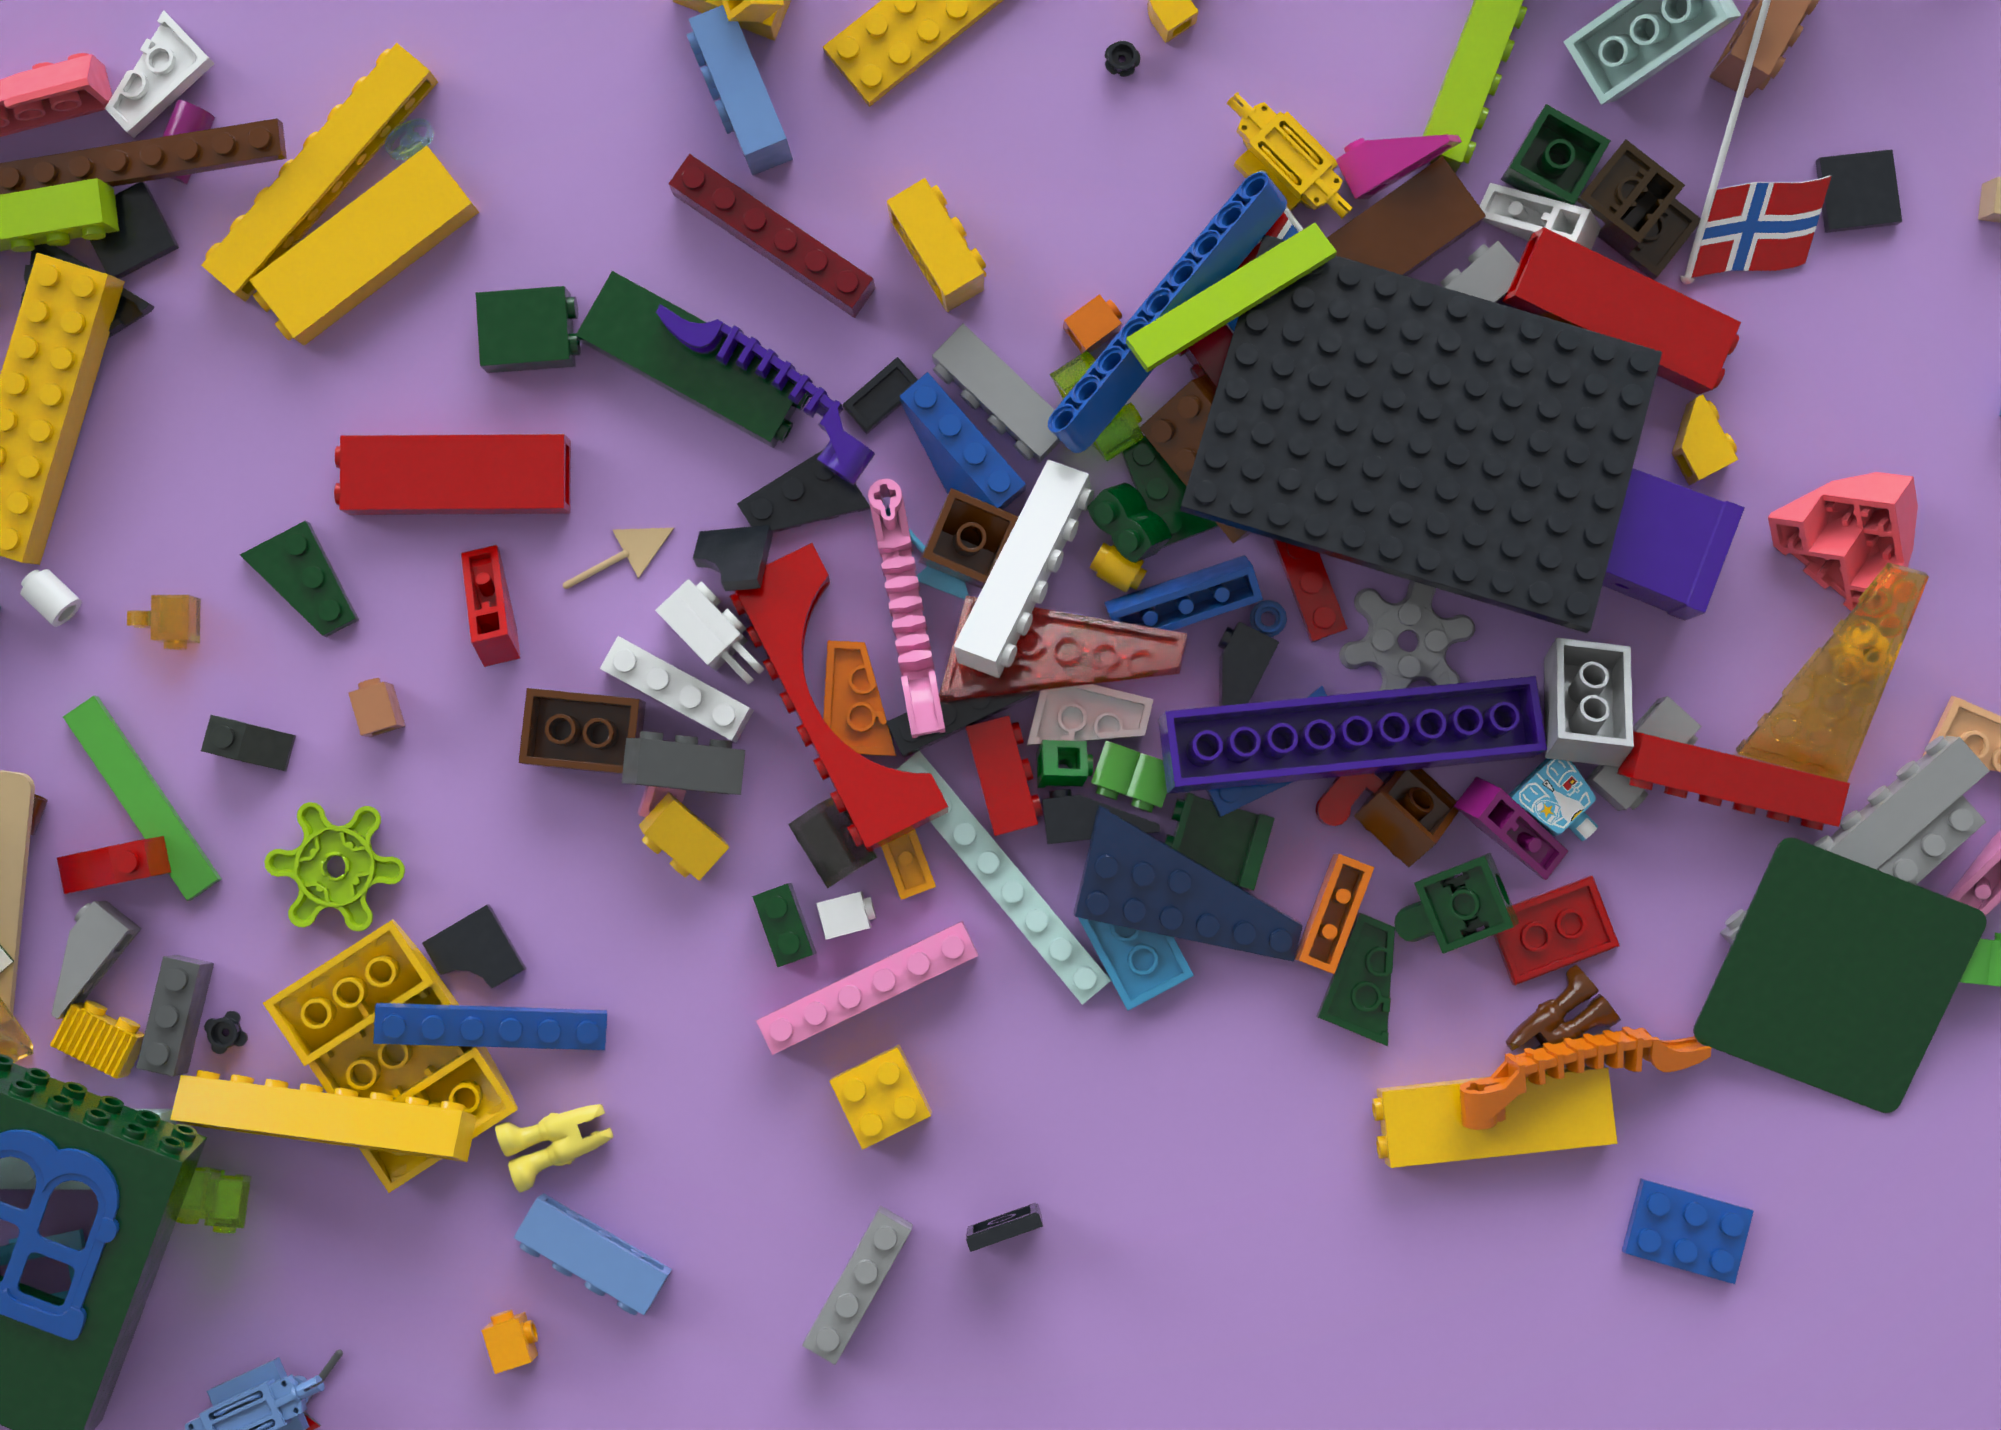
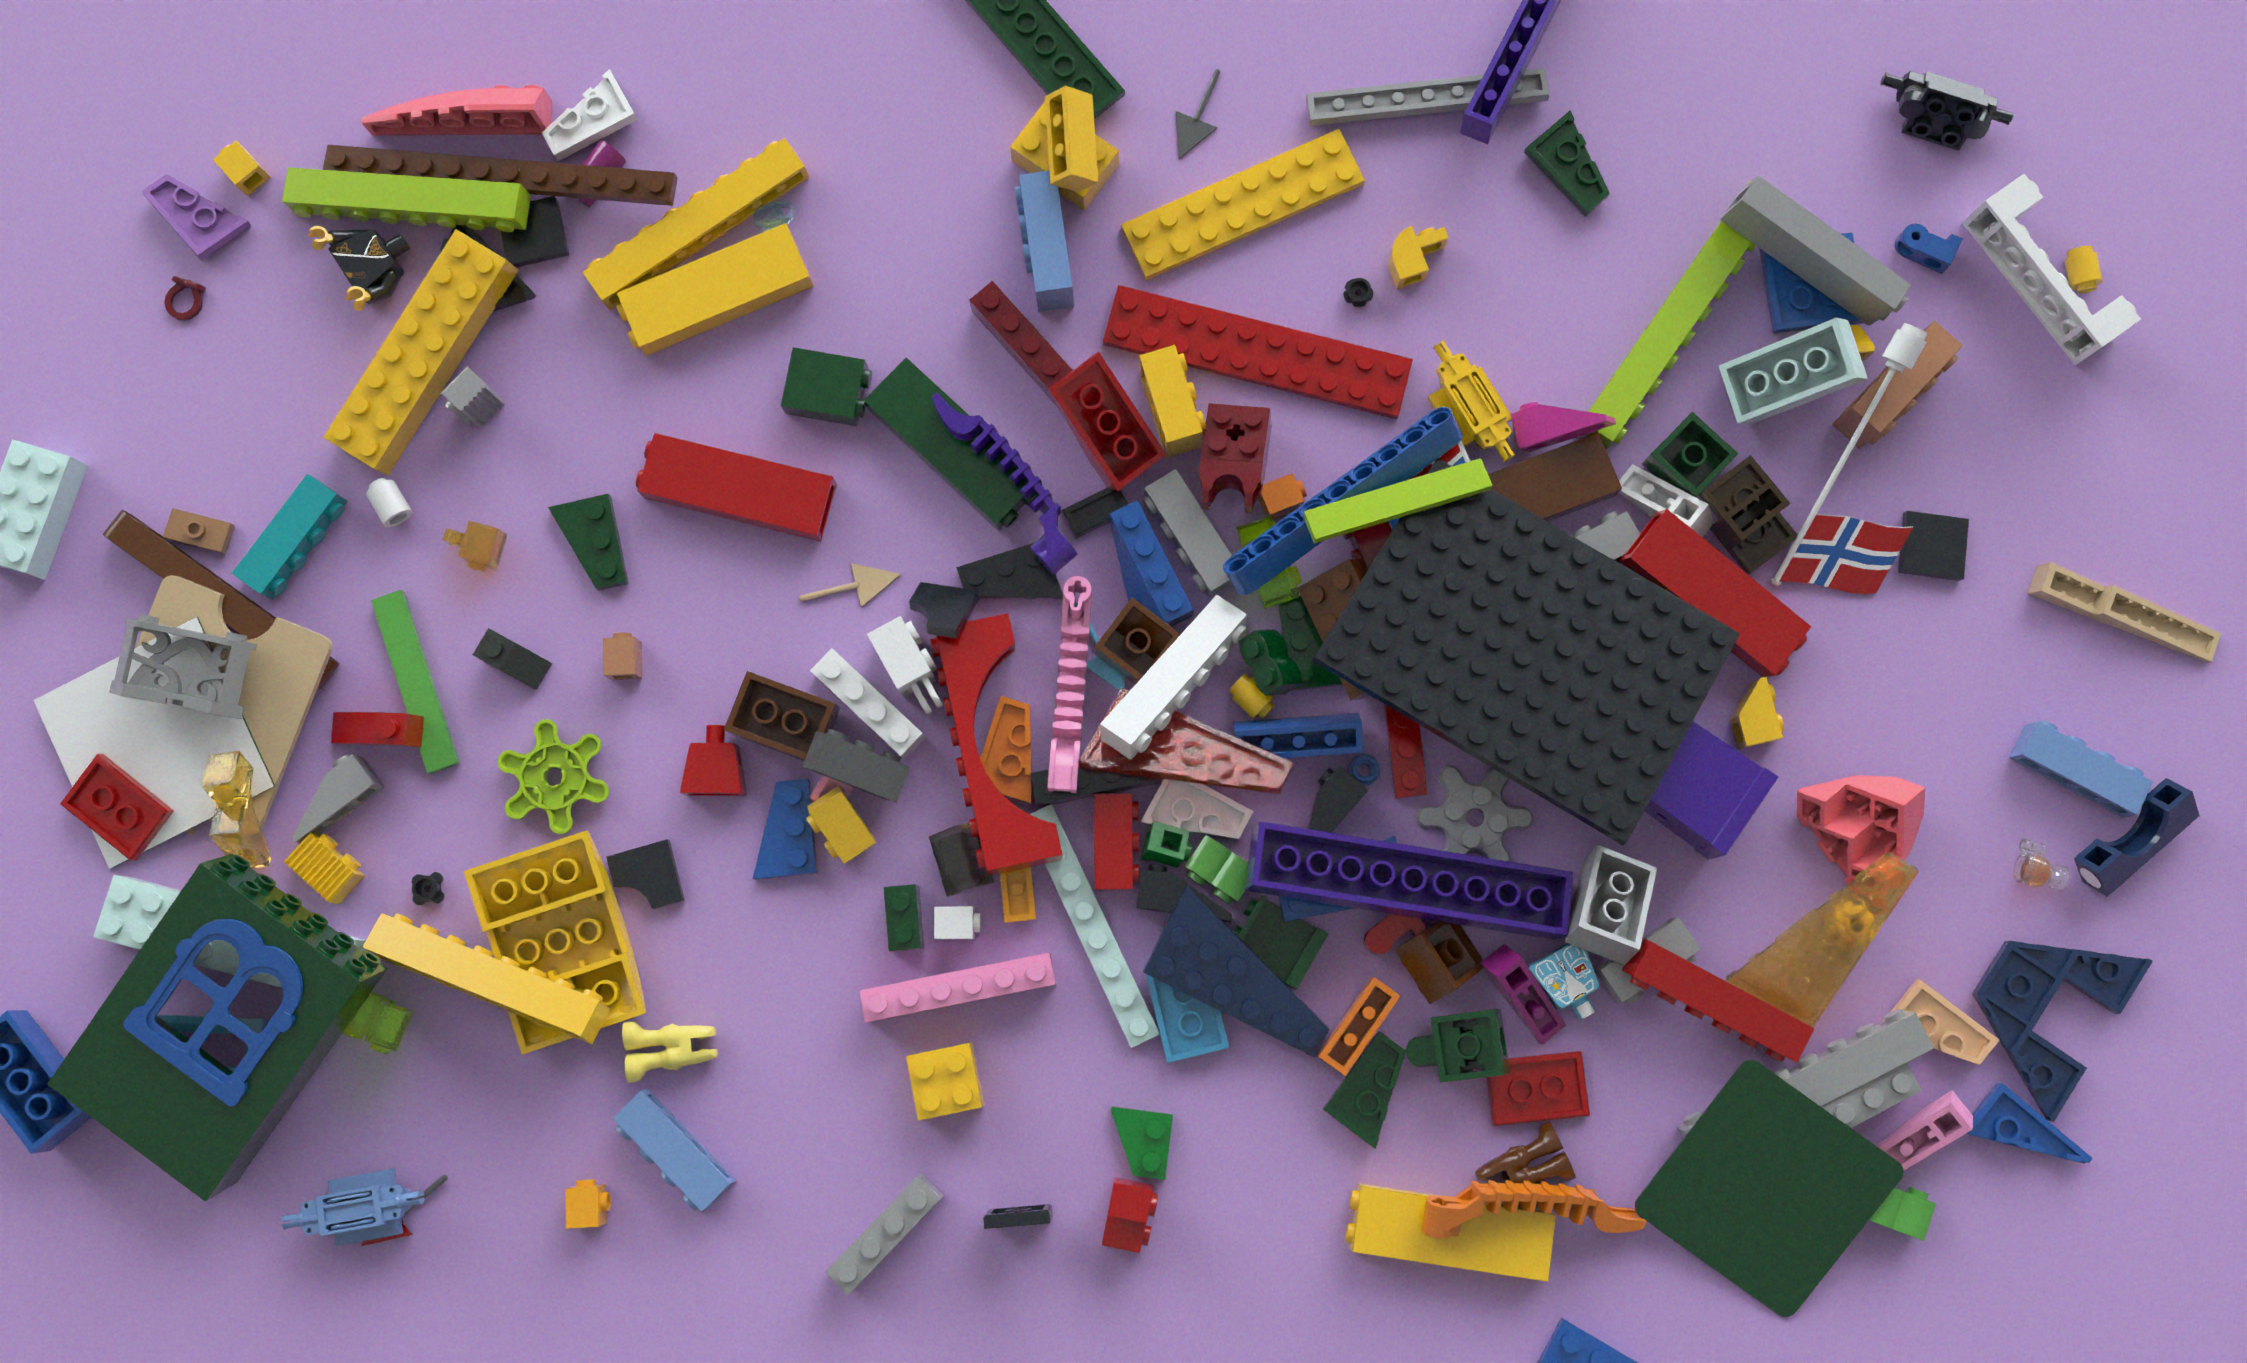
camera: 15 degrees right, 5 degrees down
(113, 449) = (471, 398): none -> light grey brick
(175, 1015) = (391, 864): dark grey brick -> none
(489, 607) = (735, 599): red slope -> none
(489, 1026) = (642, 939): blue plate -> none
(518, 807) = (713, 767): none -> red torso
(624, 864) = (787, 837): none -> blue wing
(868, 291) = (1106, 423): none -> red slope
(1023, 158) = (1259, 352): none -> red plate
(1026, 286) = (1234, 452): none -> dark red brick
(1124, 1103) = (1144, 1140): none -> green wing
(1128, 1192) = (1128, 1215): none -> red brick

